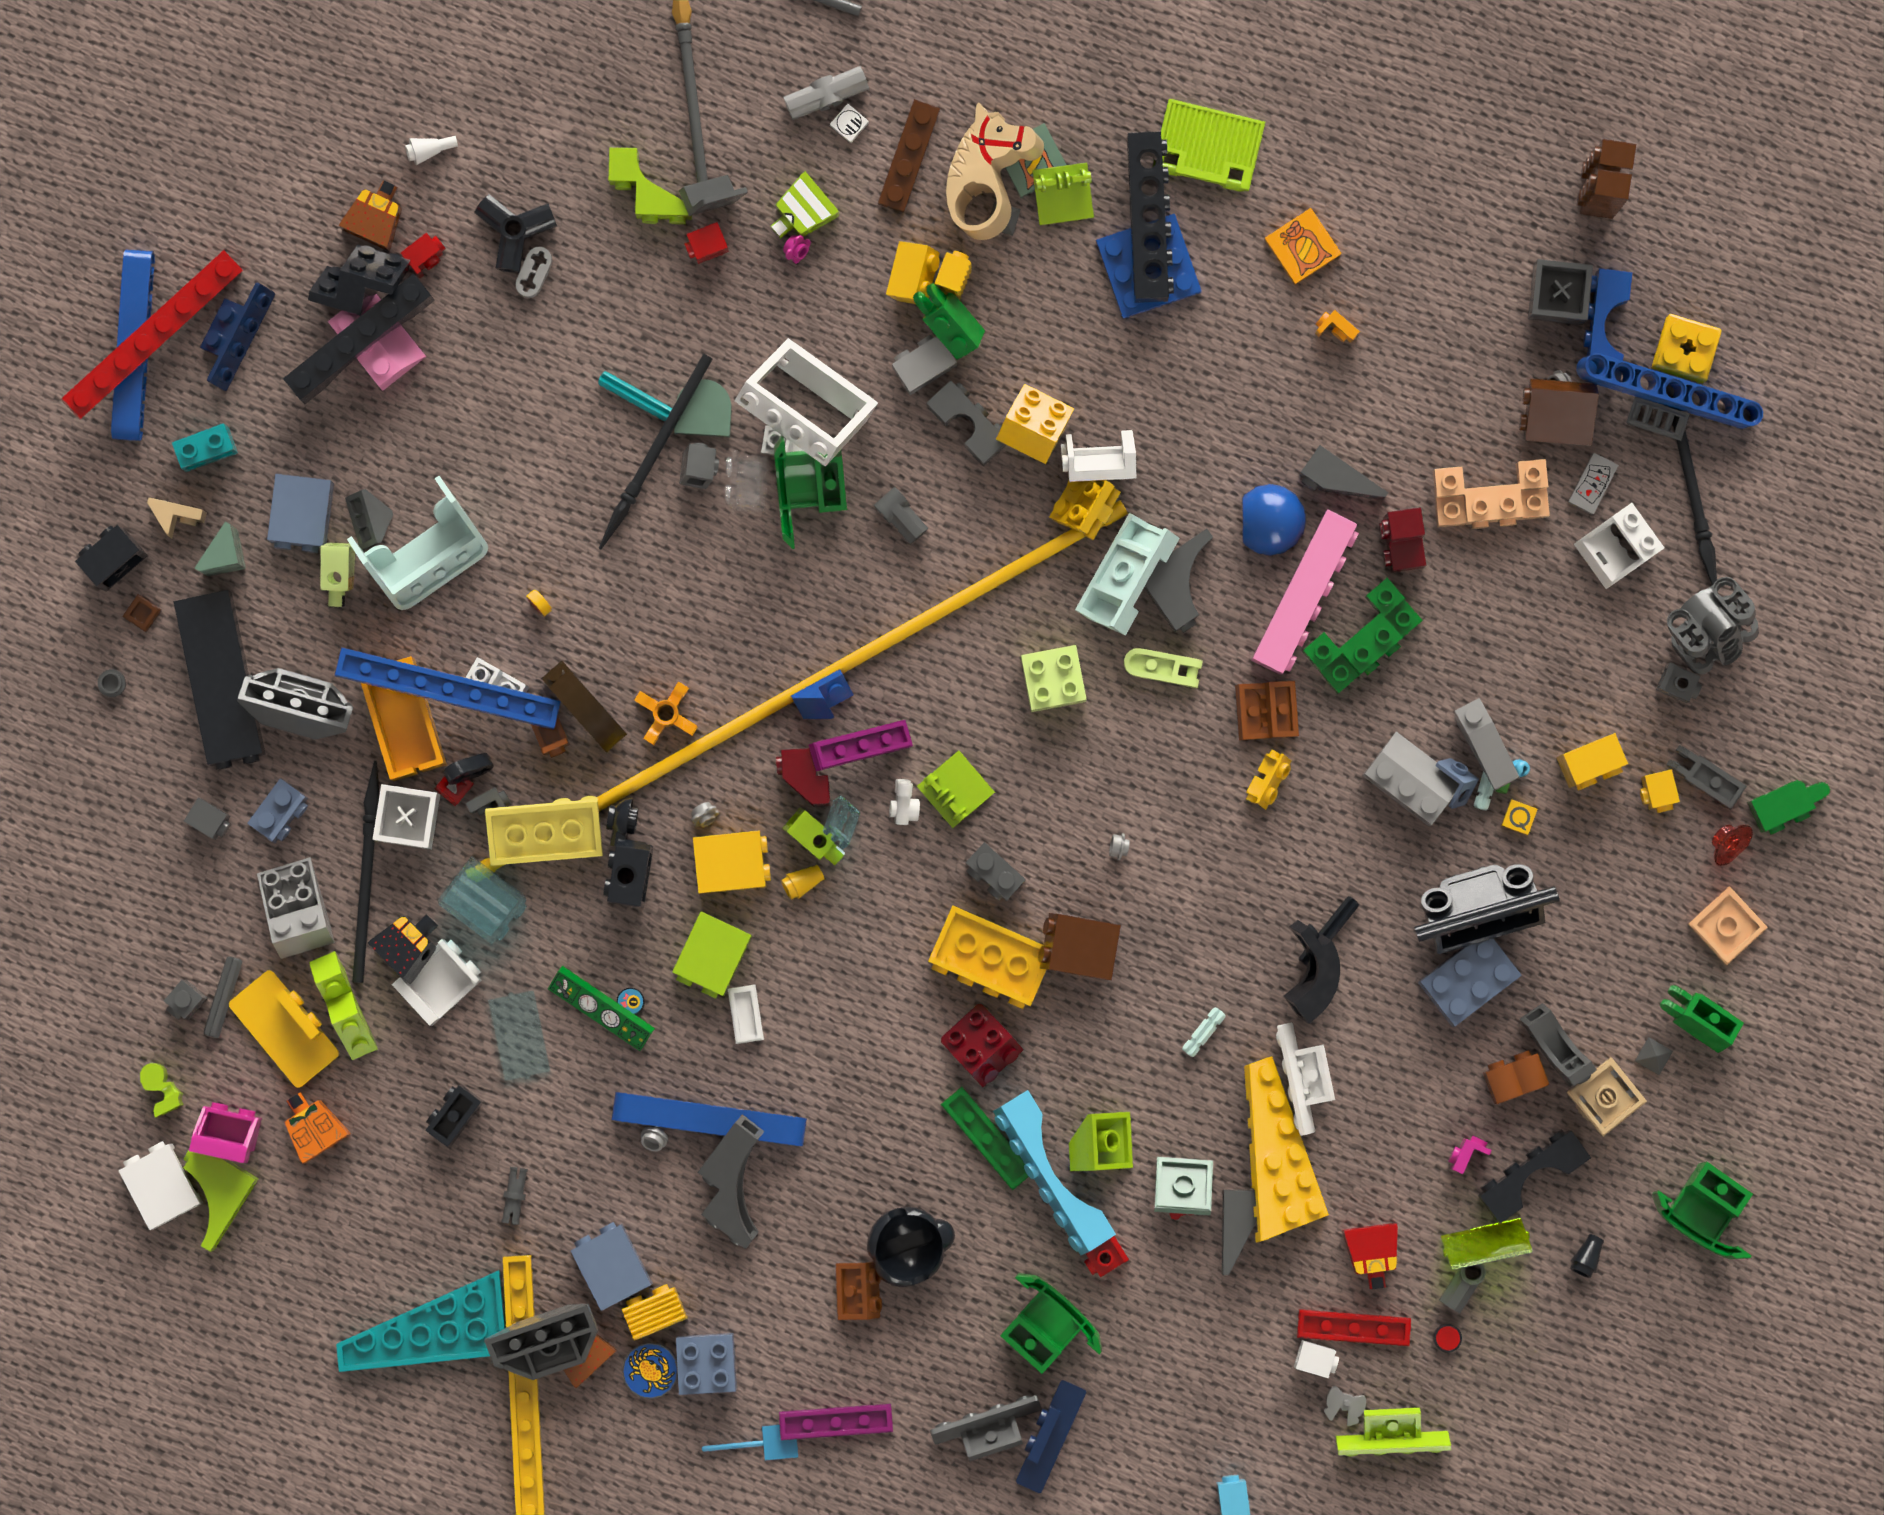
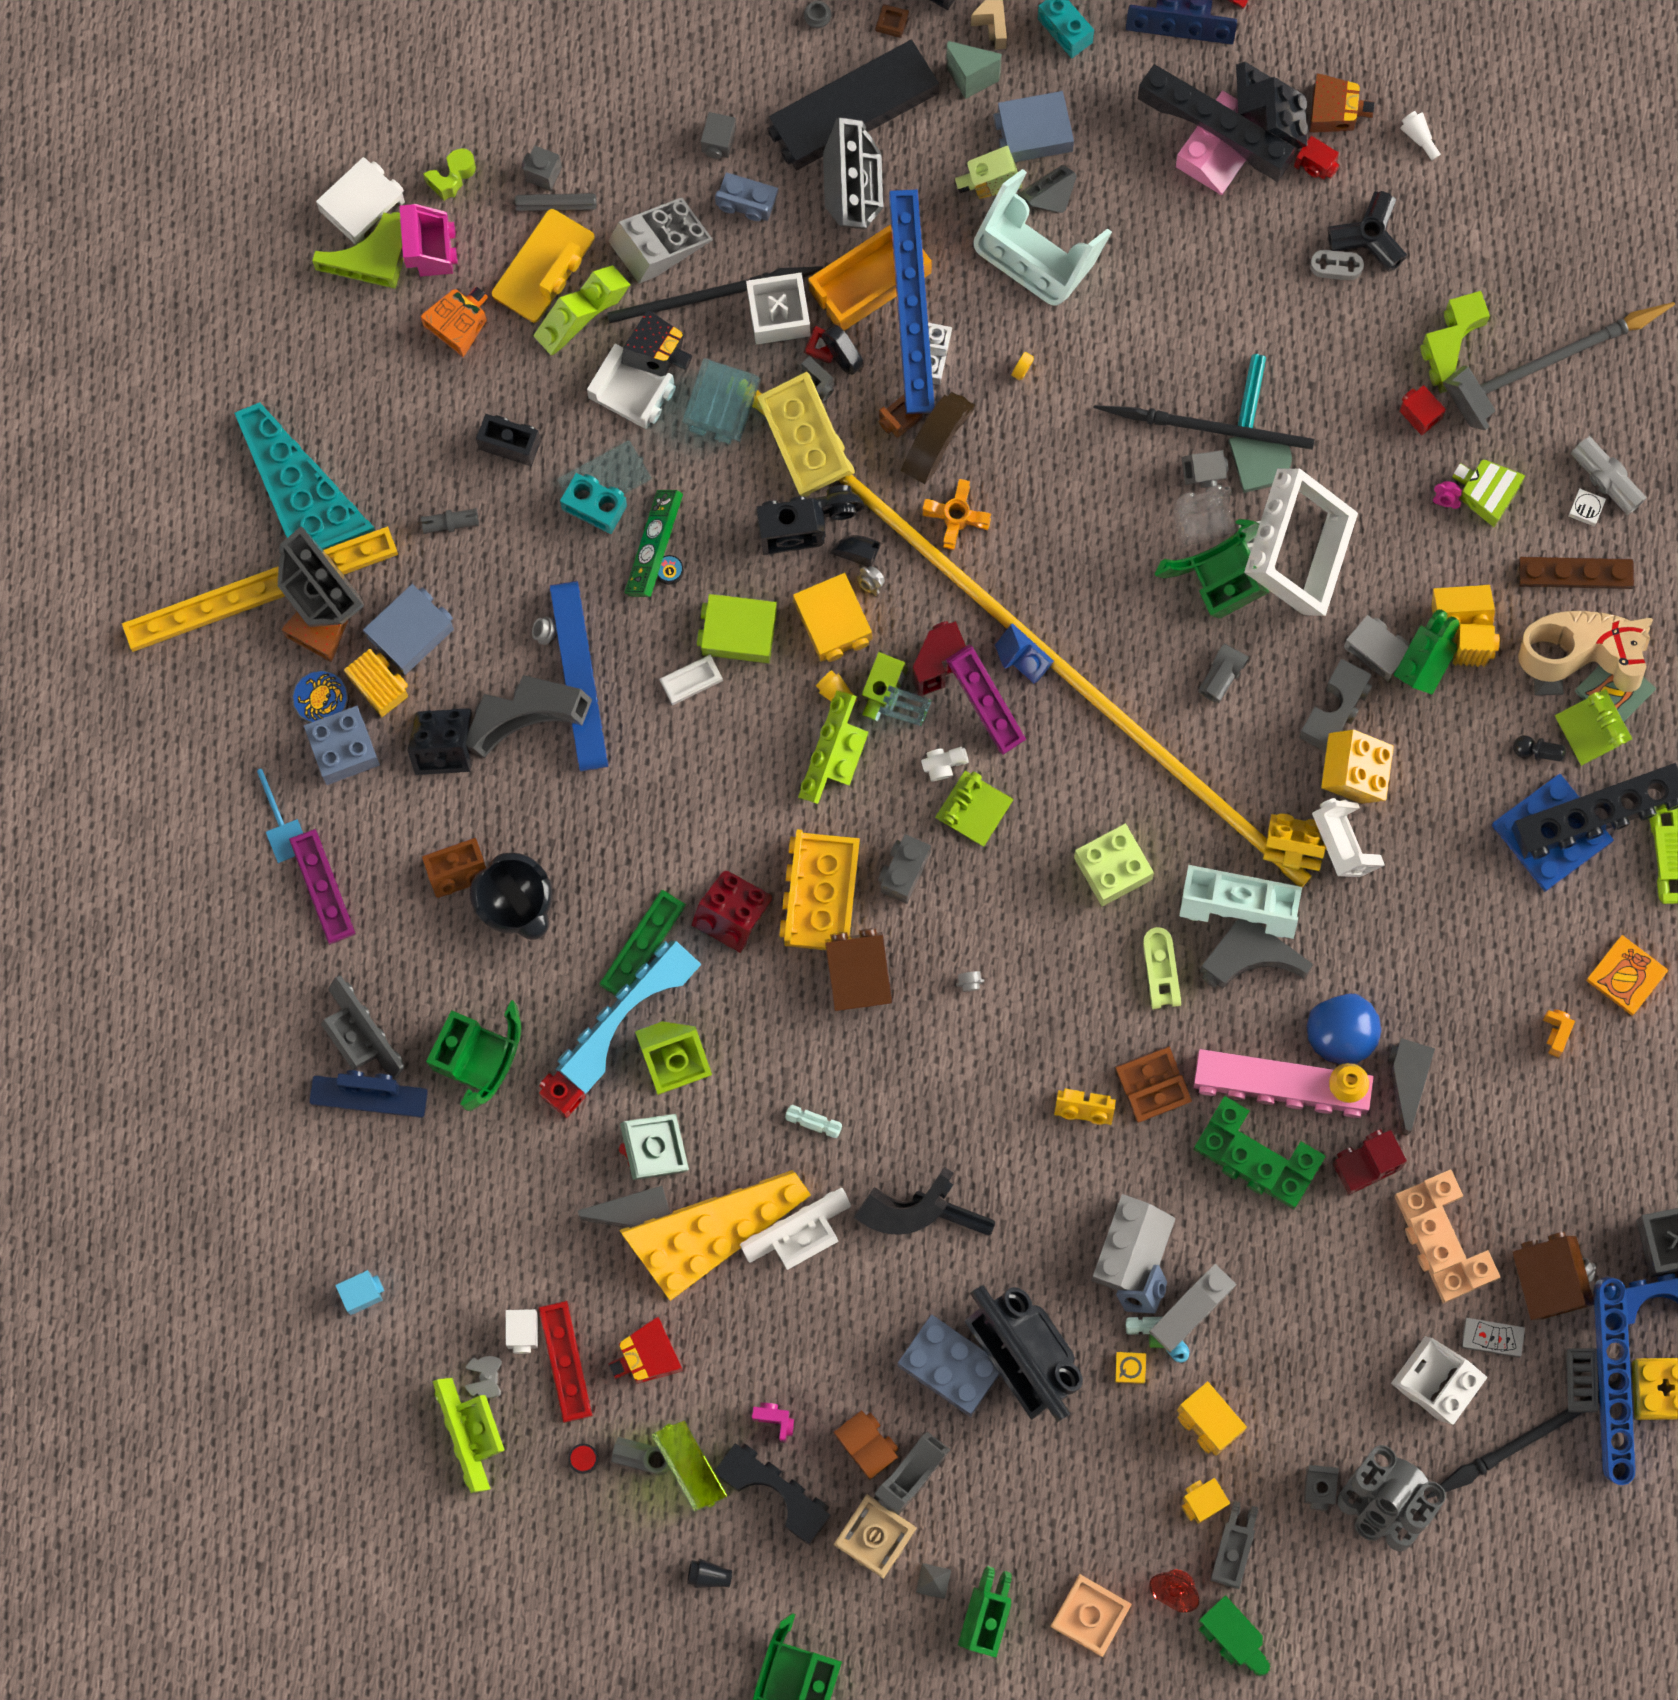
camera: 75 degrees right, 10 degrees down
(548, 1058) = (589, 508): none -> teal brick
(668, 817) = (857, 549): none -> black brick
(731, 1268) = (439, 742): none -> black bracket
(861, 900) = (836, 749): none -> lime bracket
(1059, 261) = (1525, 747): none -> black axle
(1323, 540) = (1340, 1083): none -> yellow cone

